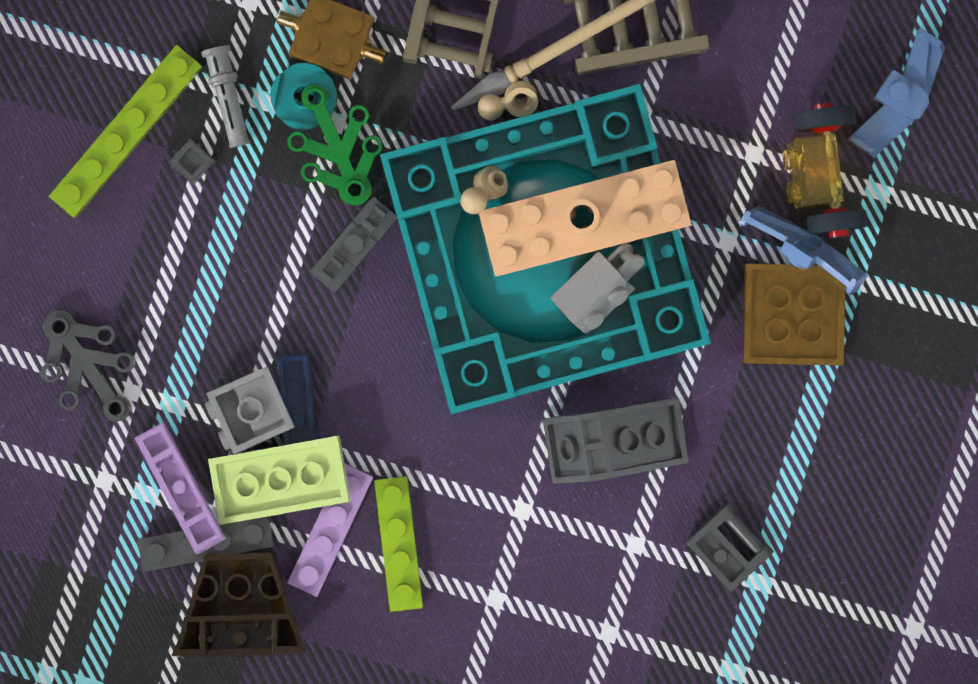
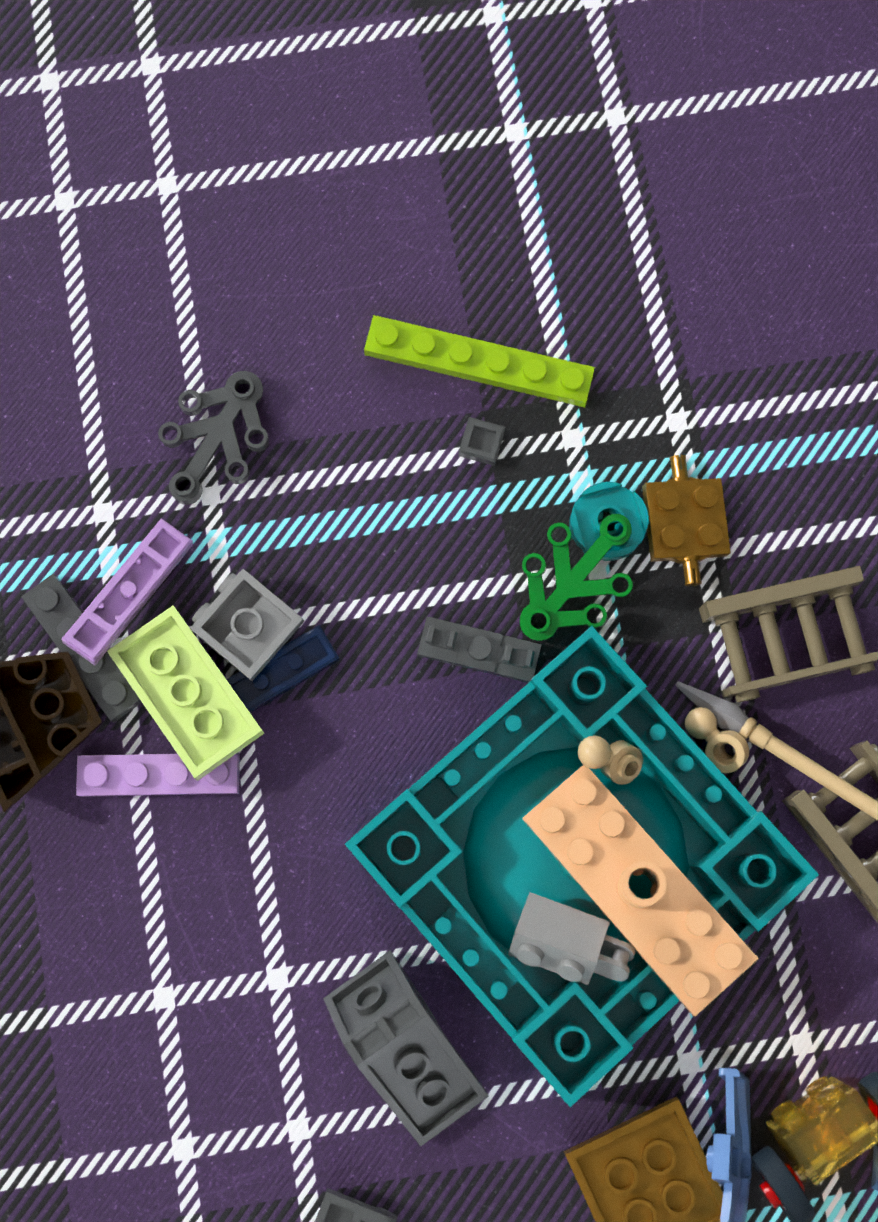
camera: 65 degrees right, 10 degrees down
(223, 81) = (582, 432): light grey pin -> none
(398, 543) = (175, 857): lime plate -> none

